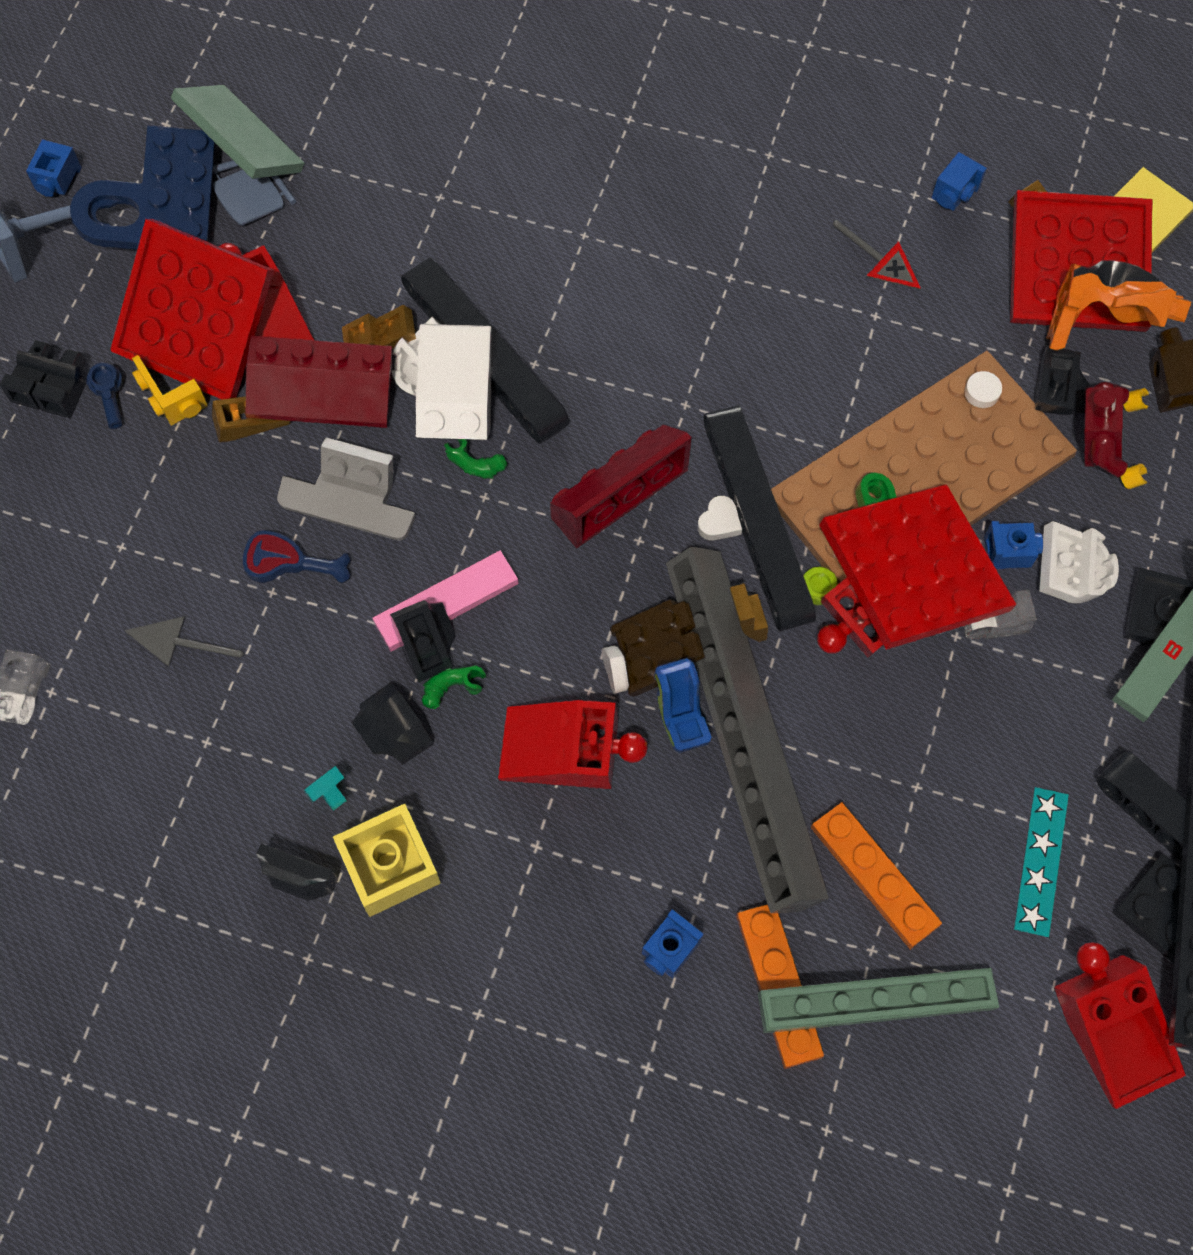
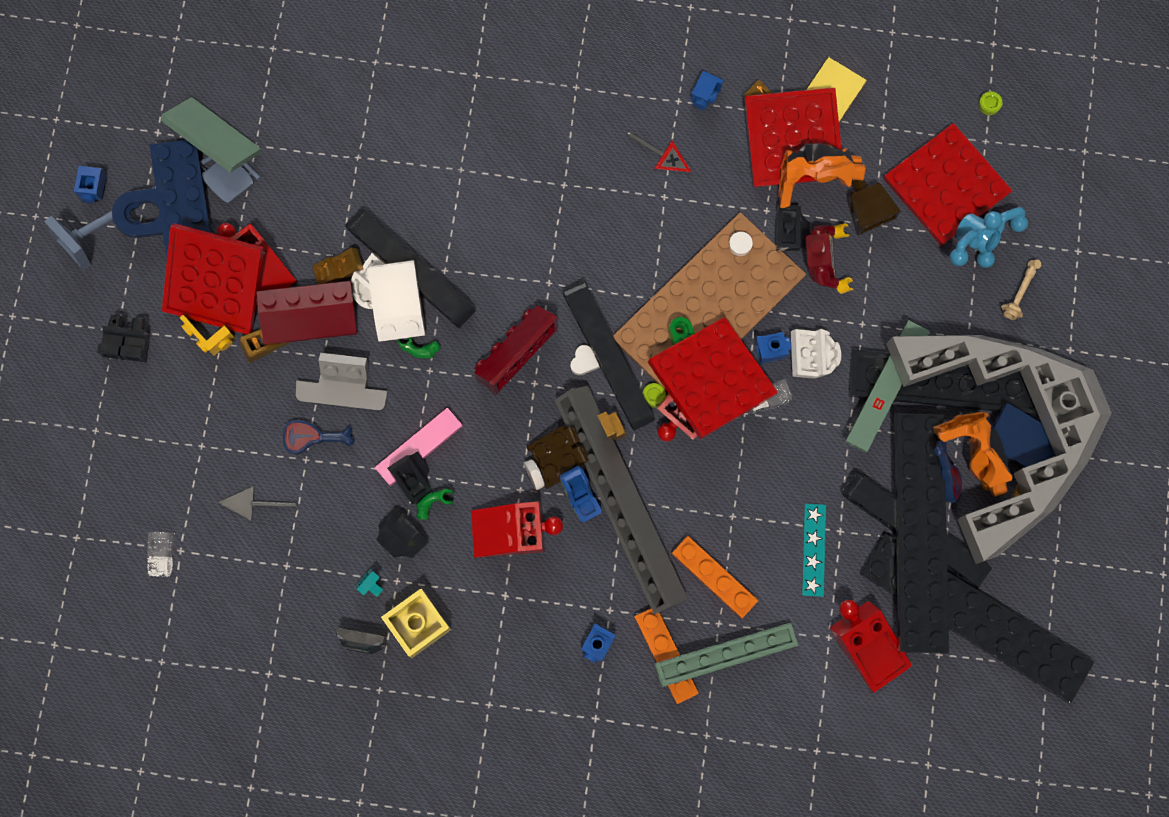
camera: 10 degrees left, 10 degrees up
(105, 381) = (163, 334): dark blue plate -> none

